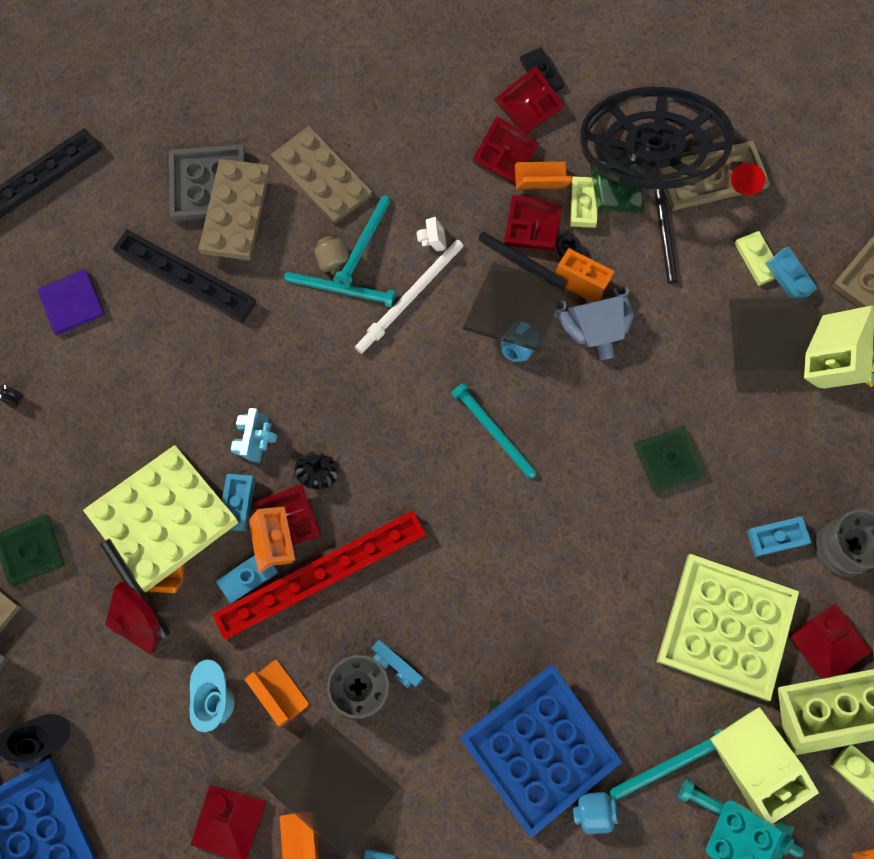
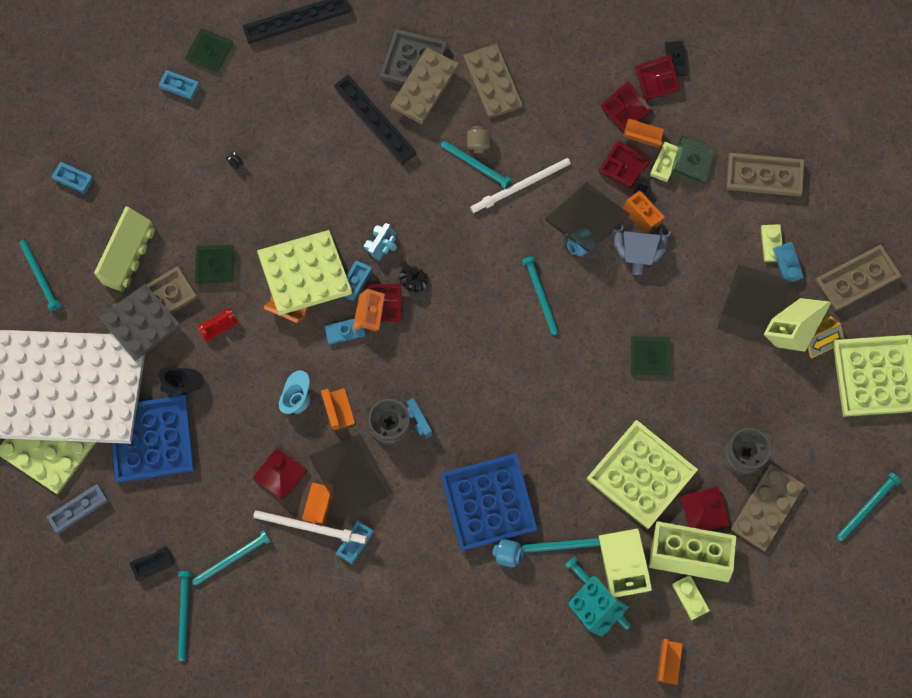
camera: 25 degrees right, 0 degrees up
(62, 636) = (217, 325): none -> red hinge
(70, 302) = (294, 111): dark purple tile -> none
(129, 579) = (273, 310): black bar -> none
(133, 618) = (265, 329): dark red plate -> none
(318, 575) = (391, 346): red plate -> none
(343, 277) = (479, 158): teal bar -> none
(433, 235) = (553, 149): white tile -> none
(523, 260) = (606, 187): black bar -> none
(665, 236) = (713, 206): black bar -> none
(670, 139) = (739, 131): black dish -> none
(747, 179) = (786, 185): red piece -> none
(778, 536) = (701, 431): dark azure plate -> none

